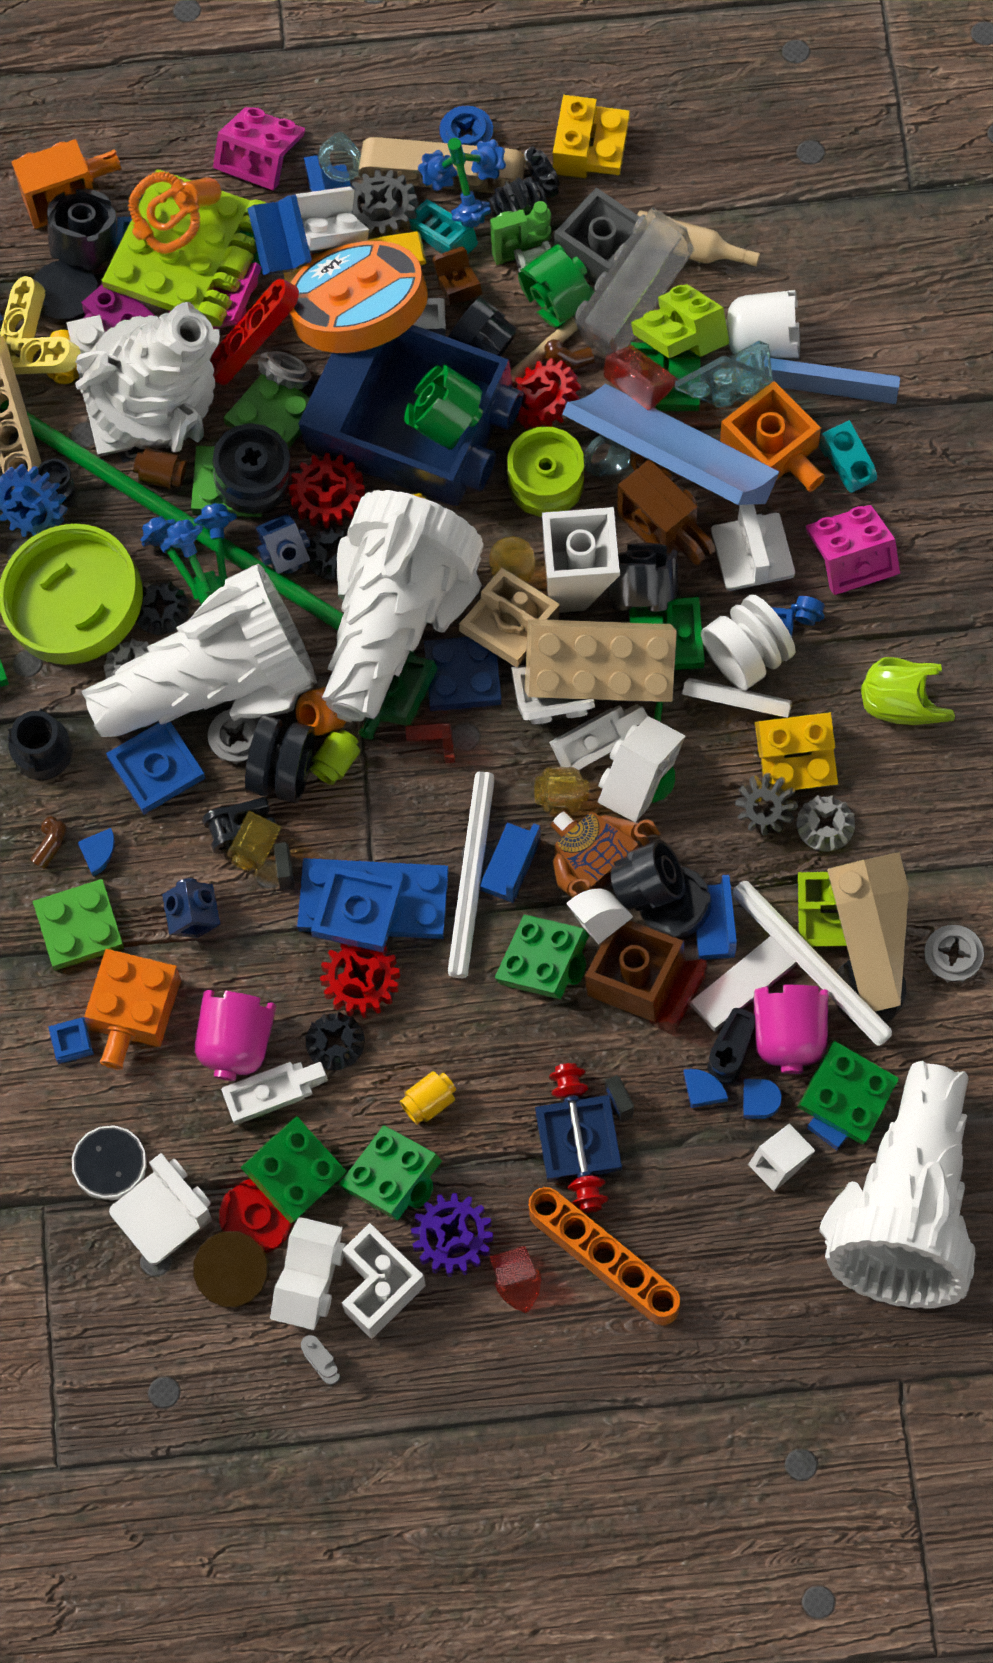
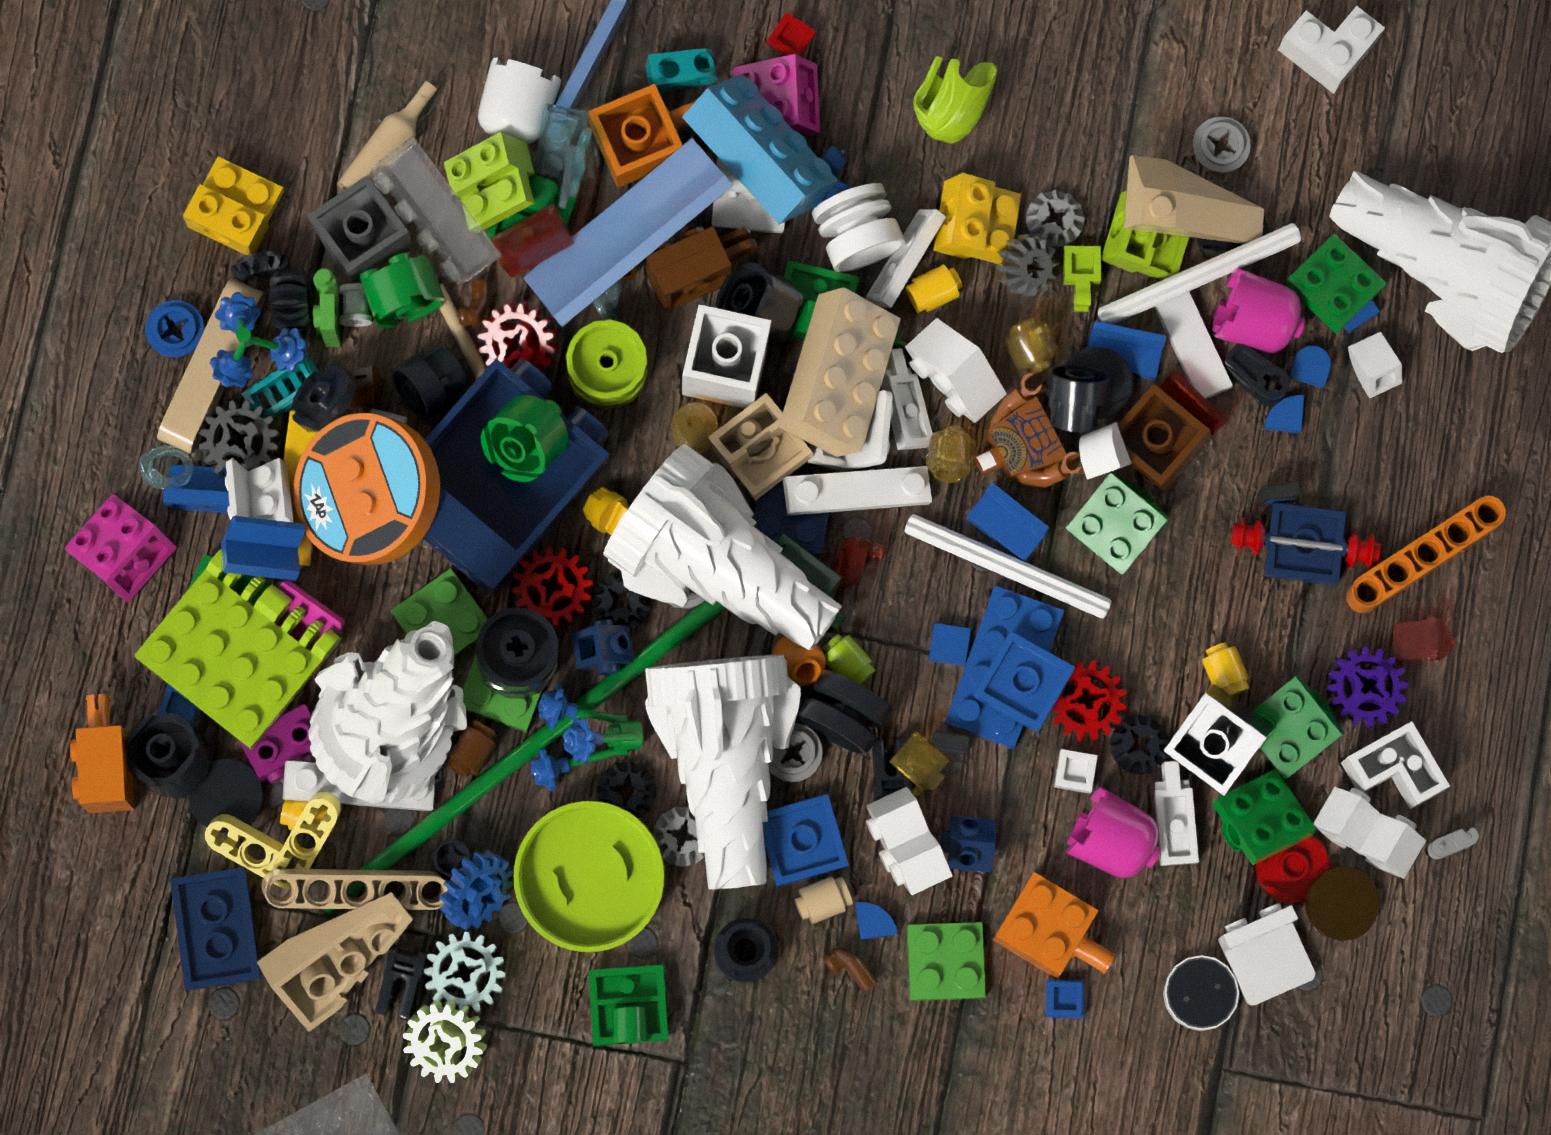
camera: 85 degrees left, 10 degrees up
(105, 798) = (823, 899): none -> tan brick
(176, 849) = (908, 845): none -> white brick
(188, 197) = (205, 625): orange piece -> none
(253, 330) = (355, 610): red beam -> none
(284, 369) = (393, 595): light grey gear -> none
(290, 987) = (1075, 771): none -> white plate
(354, 1101) = (1219, 739): none -> brick
(380, 843) = (949, 644): none -> blue tile
(433, 244) = (323, 397): none -> black tile
(498, 717) = (857, 490): none -> white plate
(691, 832) = (1031, 345): none -> clear yellow head
(716, 731) = (934, 288): none -> yellow brick
(781, 857) = (1082, 269): none -> lime plate
(790, 530) = (760, 148): none -> dark azure piece
(916, 541) = (790, 36): none -> red plate

